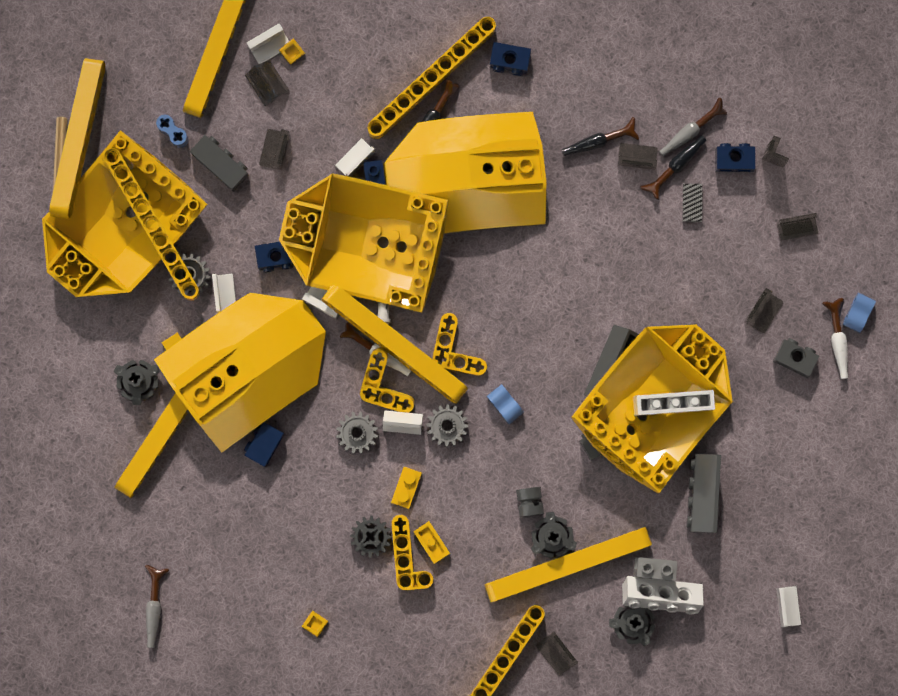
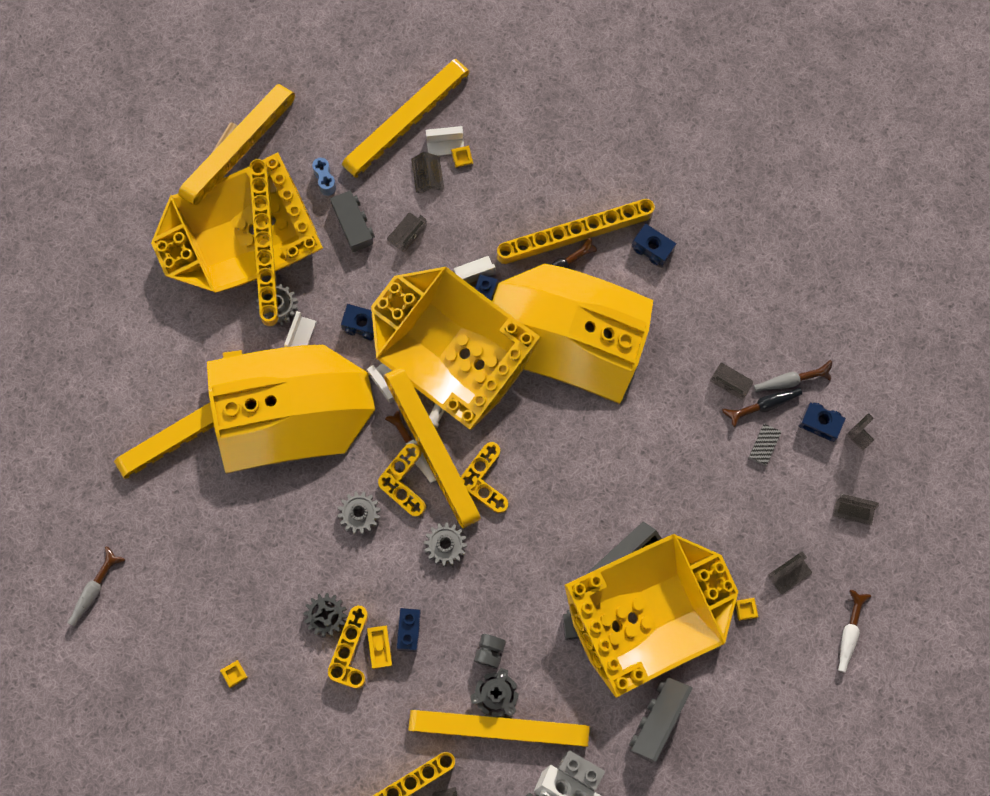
camera: 20 degrees right, 10 degrees down
(128, 373) = (186, 379): dark grey piece -> none
(263, 444) = (268, 484): dark blue brick -> none
(402, 422) = (405, 522): white panel -> none
(406, 487) = (380, 585): yellow plate -> none
(450, 516) = (408, 630): none -> dark blue brick
(505, 404) = (508, 549): medium blue axle -> none
(599, 139) = (703, 351): black piece -> none
(673, 402) = (668, 618): white brick -> none
(738, 361) = (746, 609): none -> yellow tile
(784, 357) = (792, 624): dark grey brick -> none
(859, 312) = (881, 615): medium blue axle -> none

